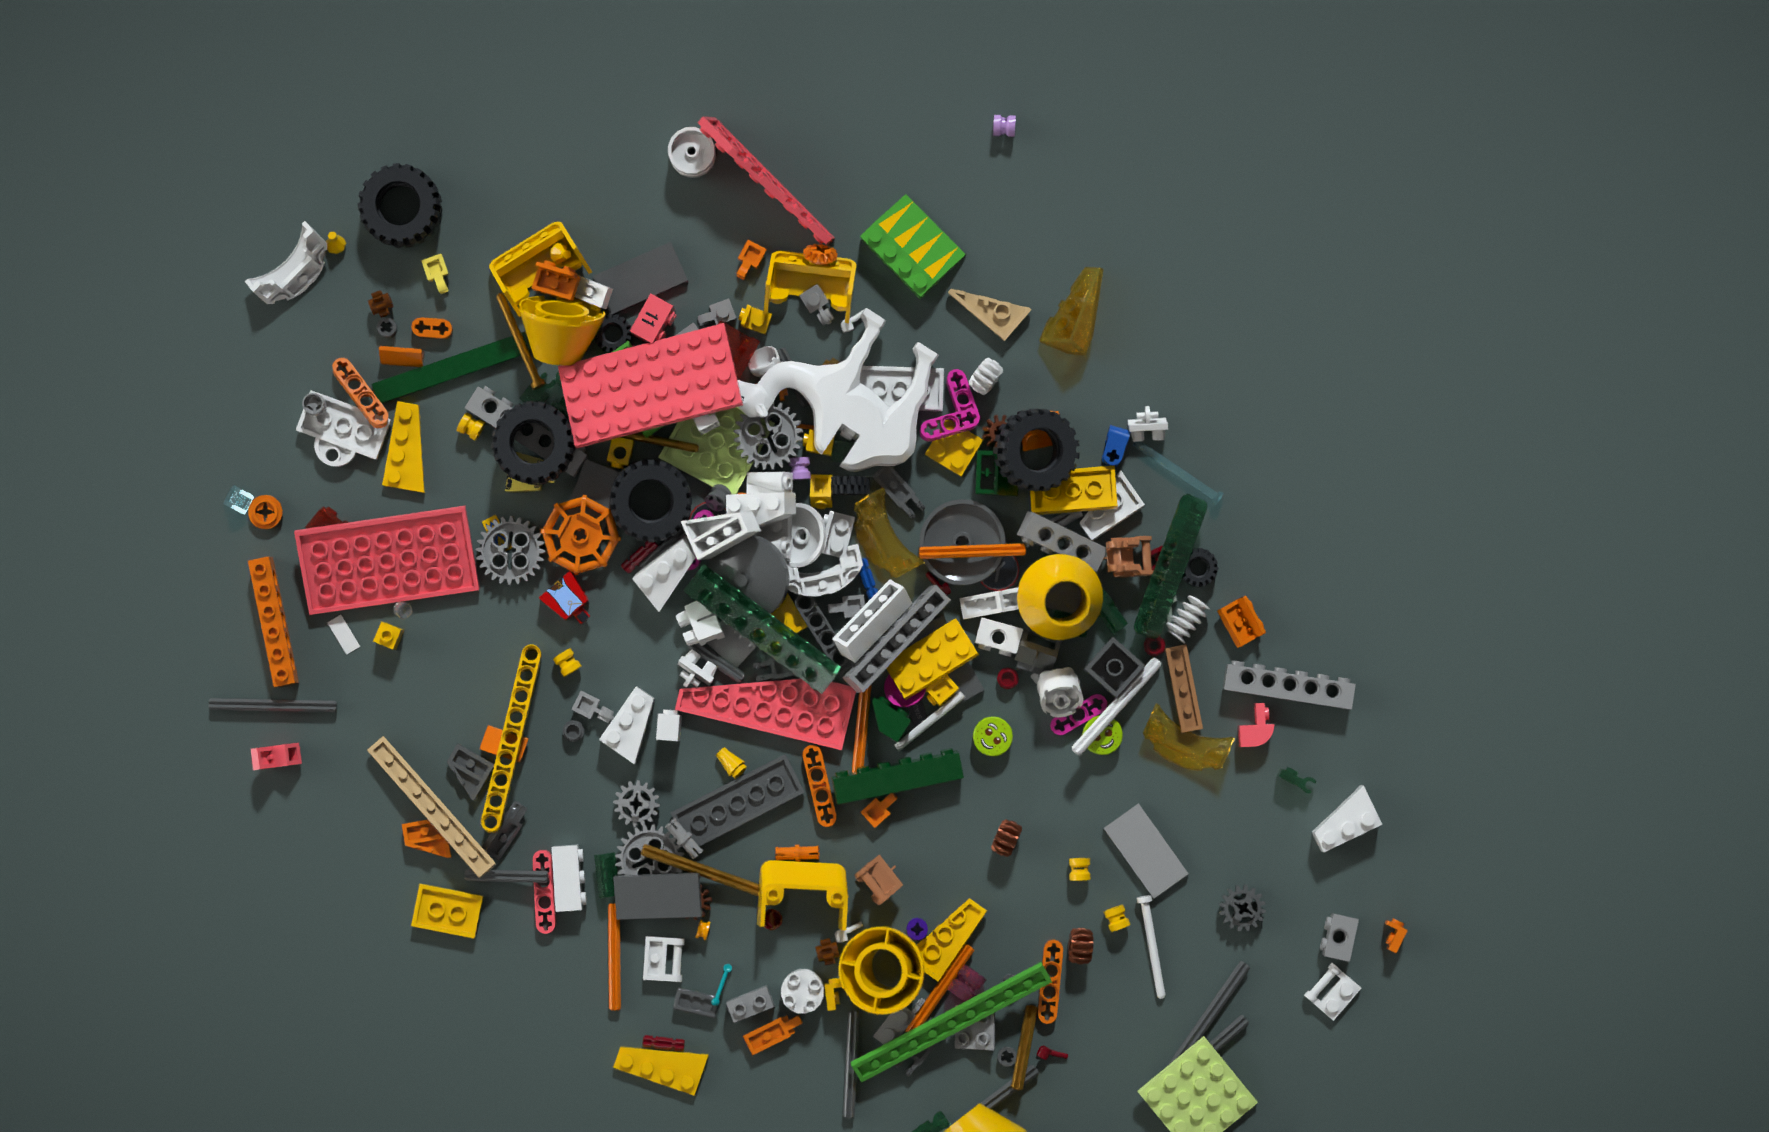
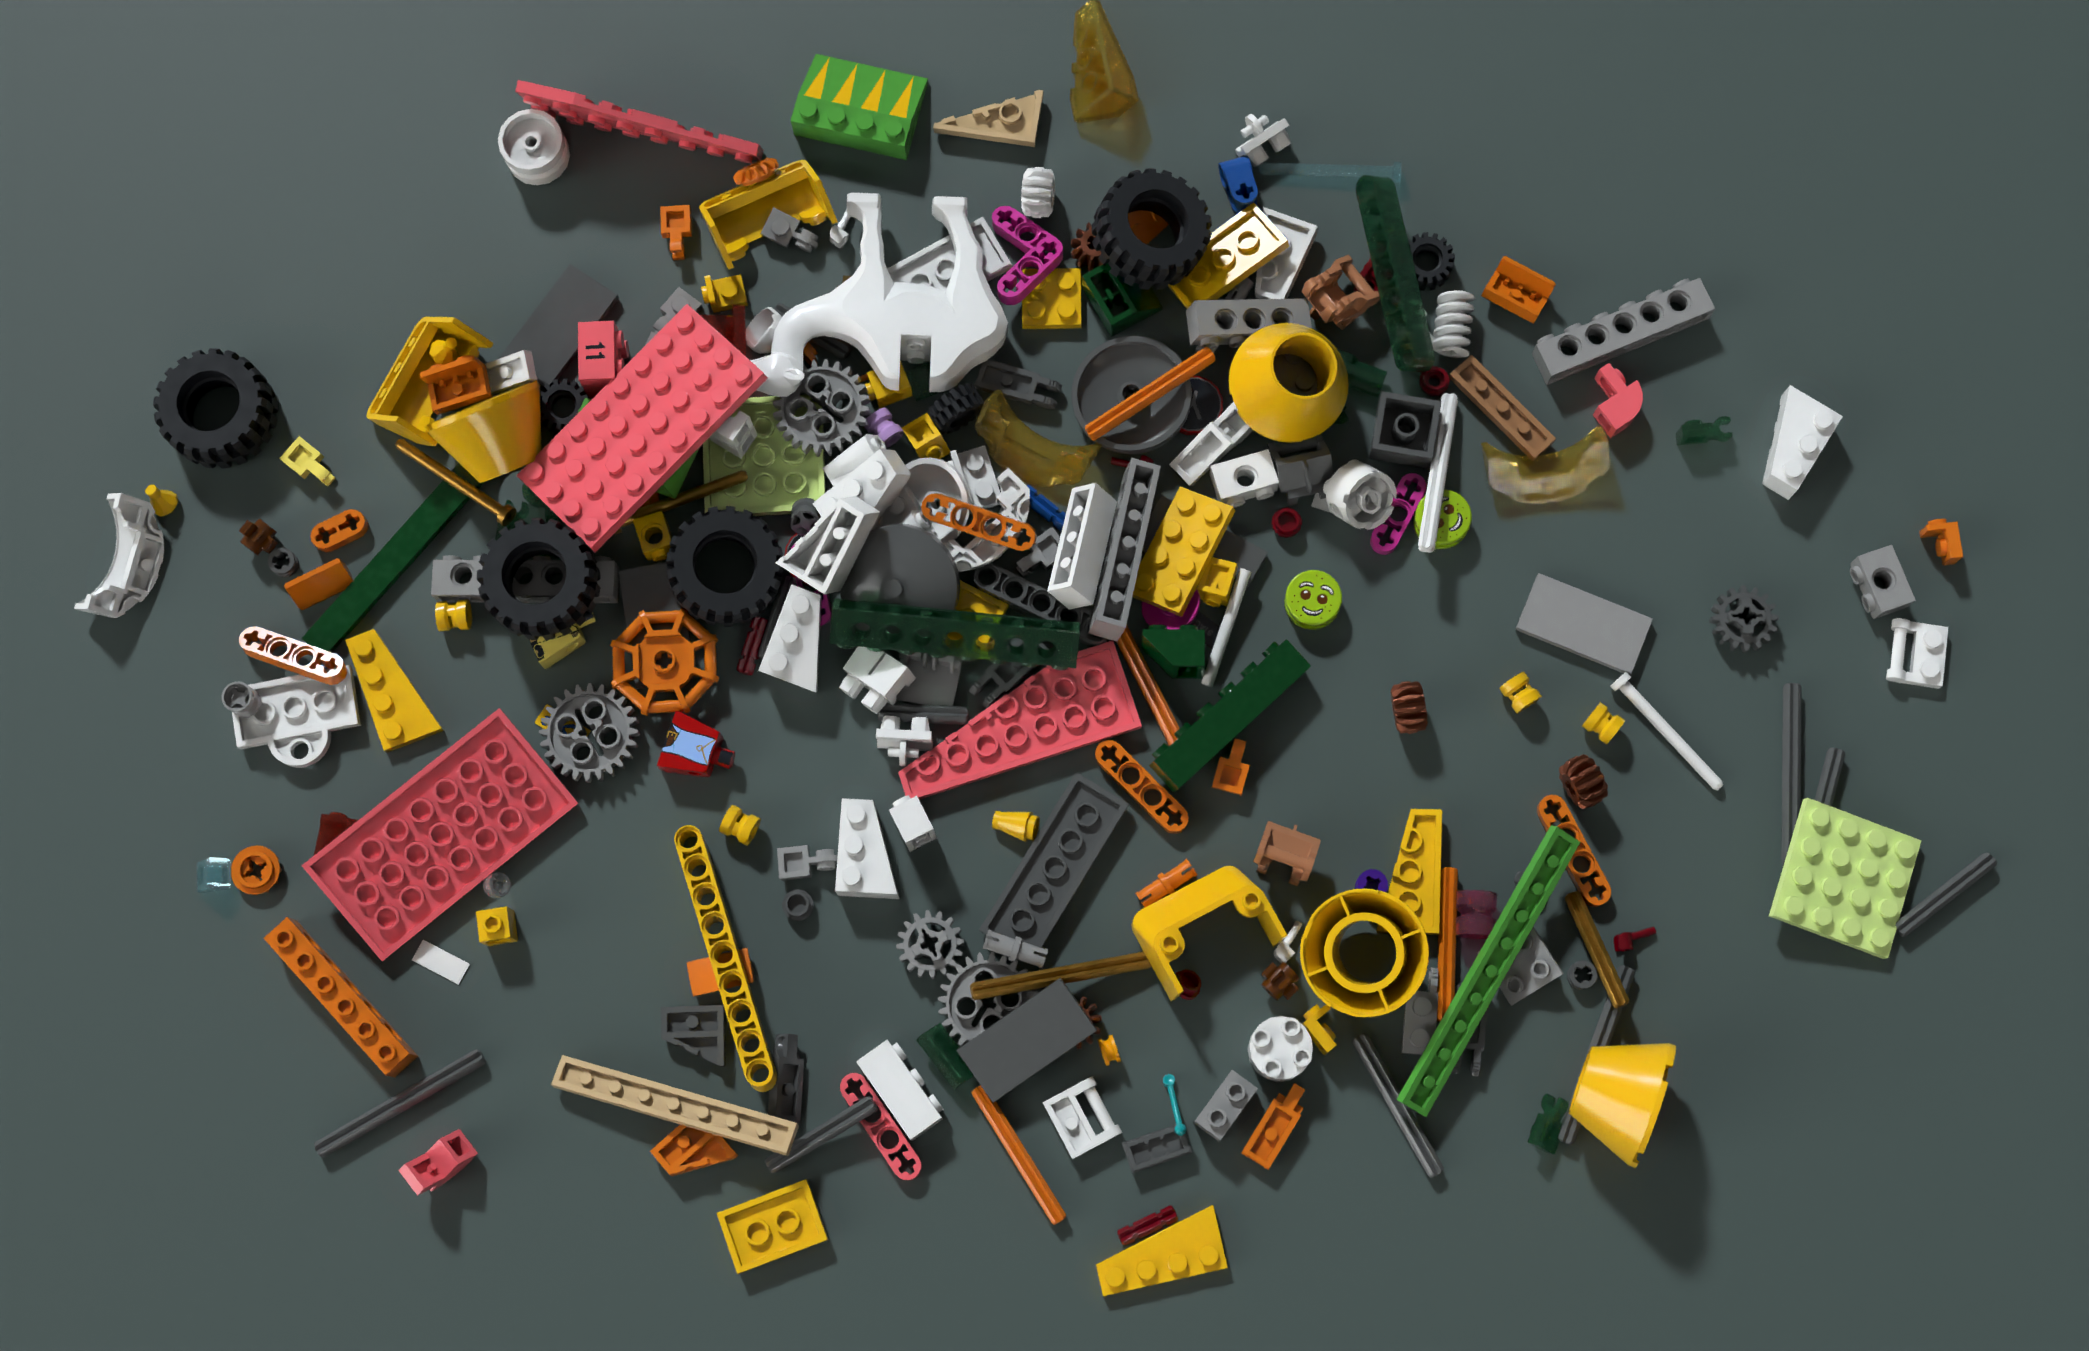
camera: 30 degrees left, 10 degrees down
(814, 572) = (980, 518): none -> orange beam

